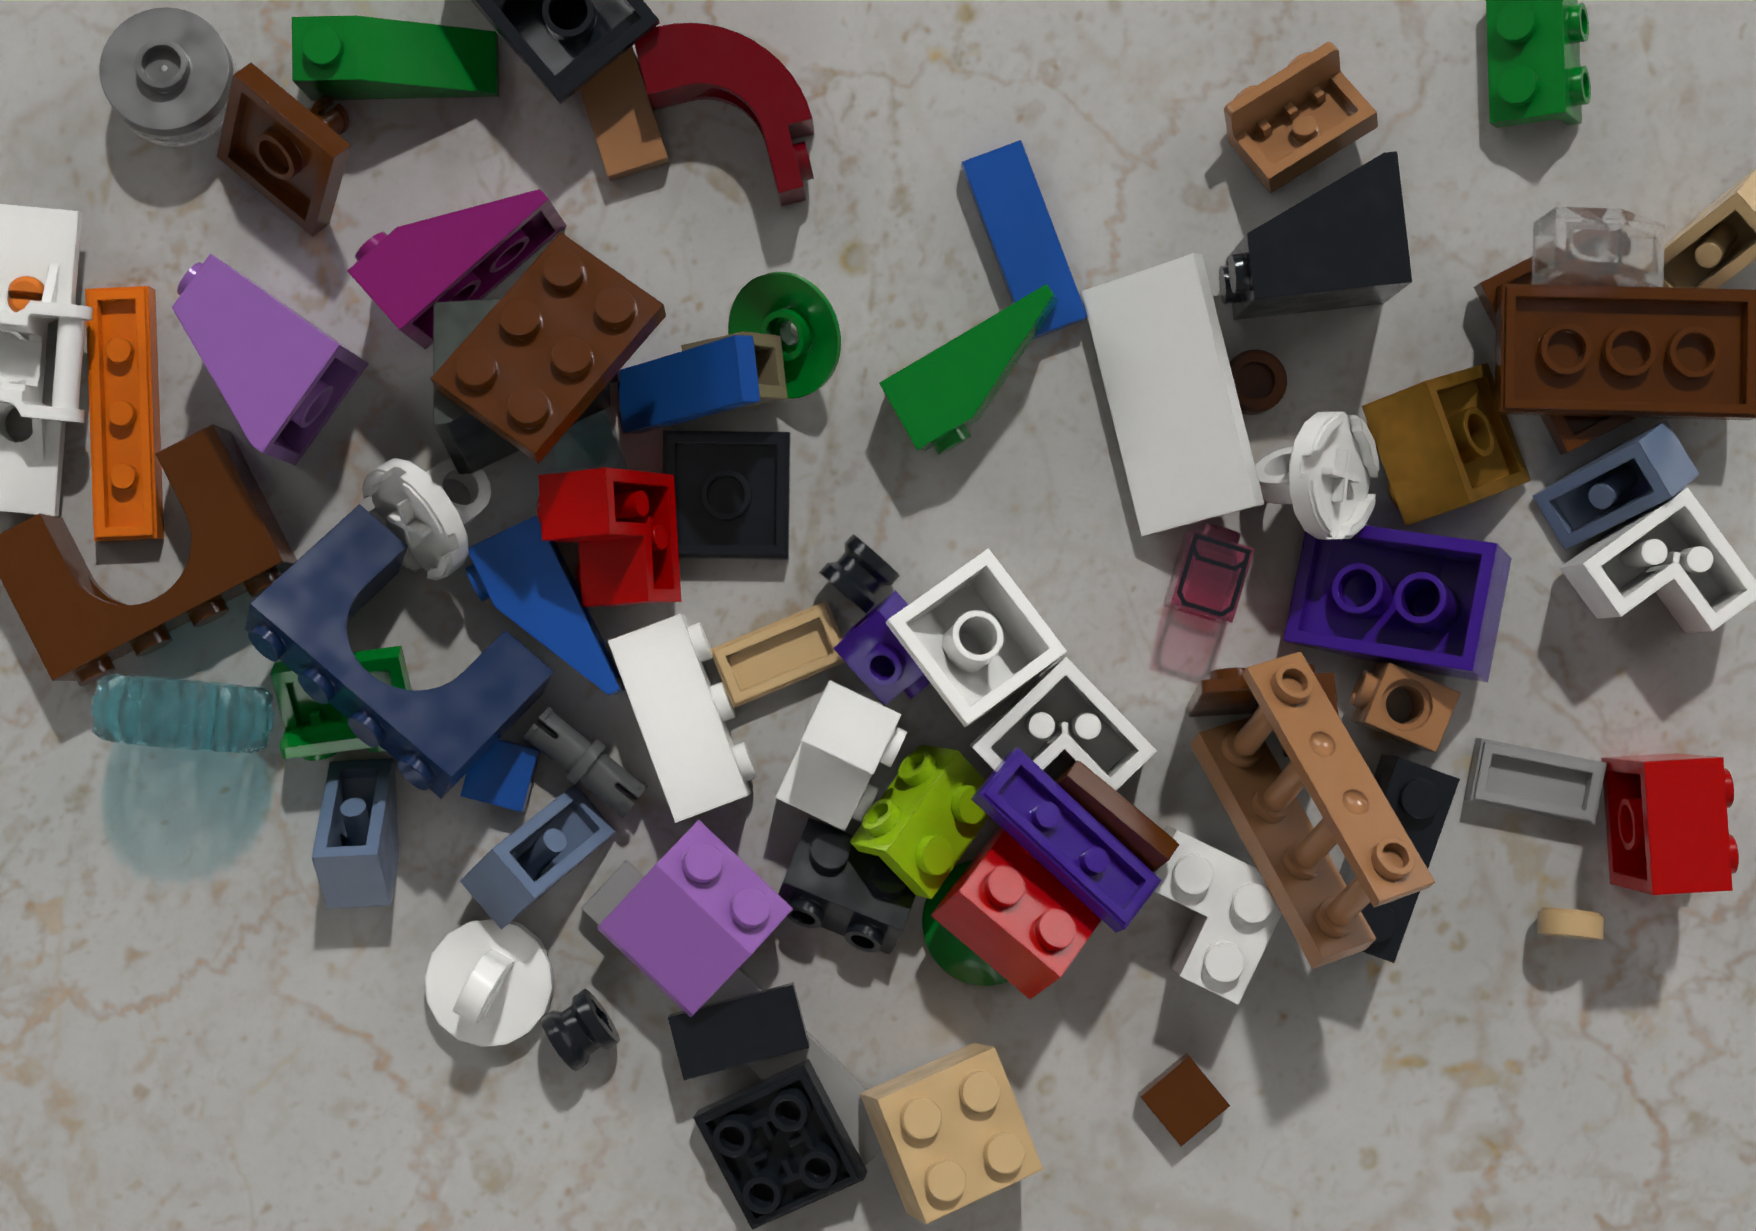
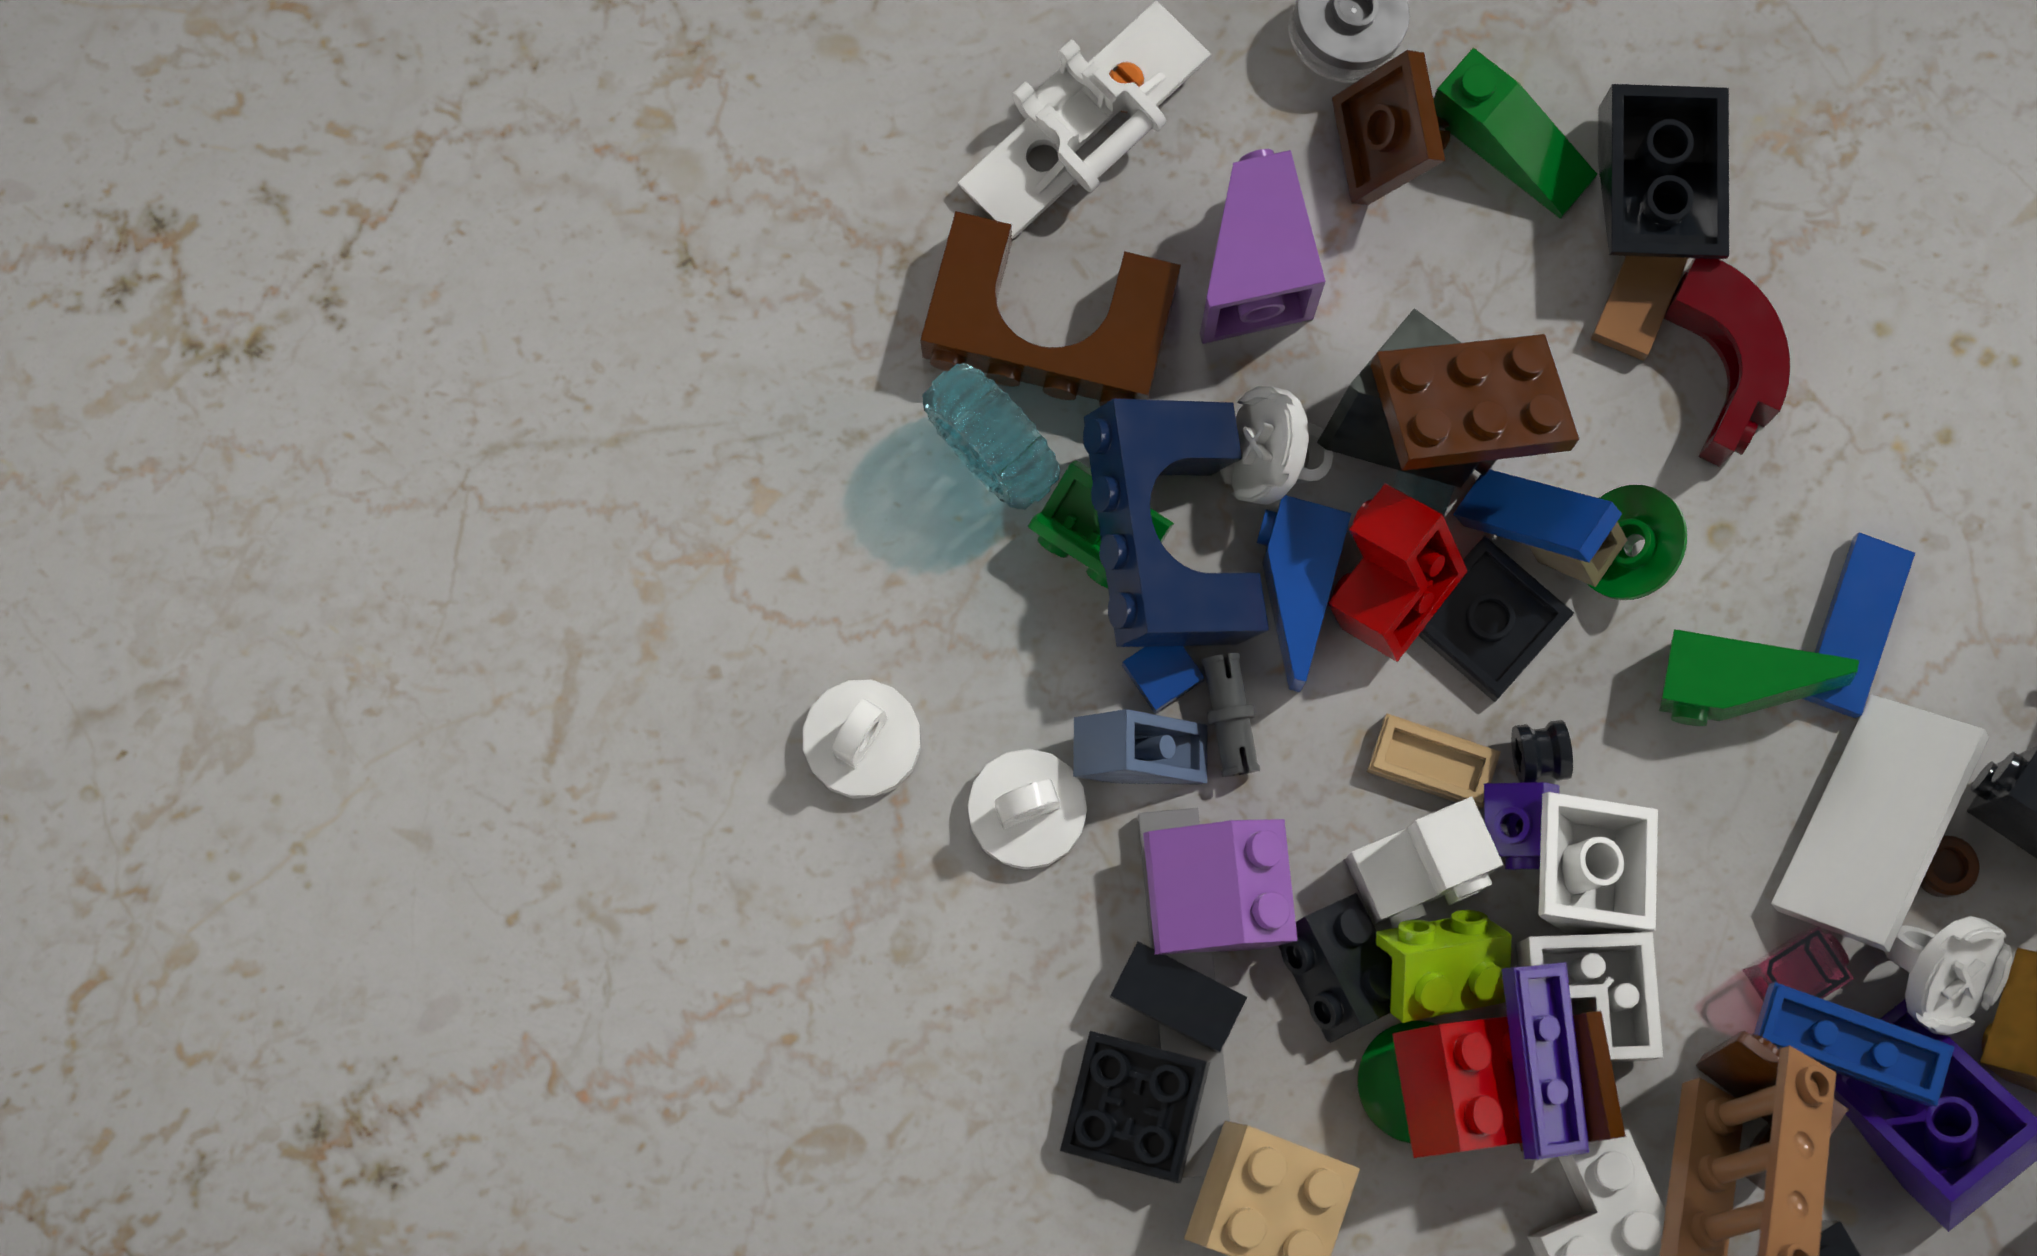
camera: 45 degrees right, 10 degrees down
(124, 414) = (1116, 213): orange tile -> none
(306, 1043) = (861, 738): none -> white tile
(358, 834) = (1029, 626): sand blue slope -> none
(452, 258) = (1448, 288): magenta slope -> none
(580, 1030) = (1064, 897): black wheel -> none
(683, 716) = (1330, 742): white brick -> none
(1296, 605) = (1855, 1044): none -> blue tile
(1430, 708) = (1894, 1203): medium nougat brick -> none

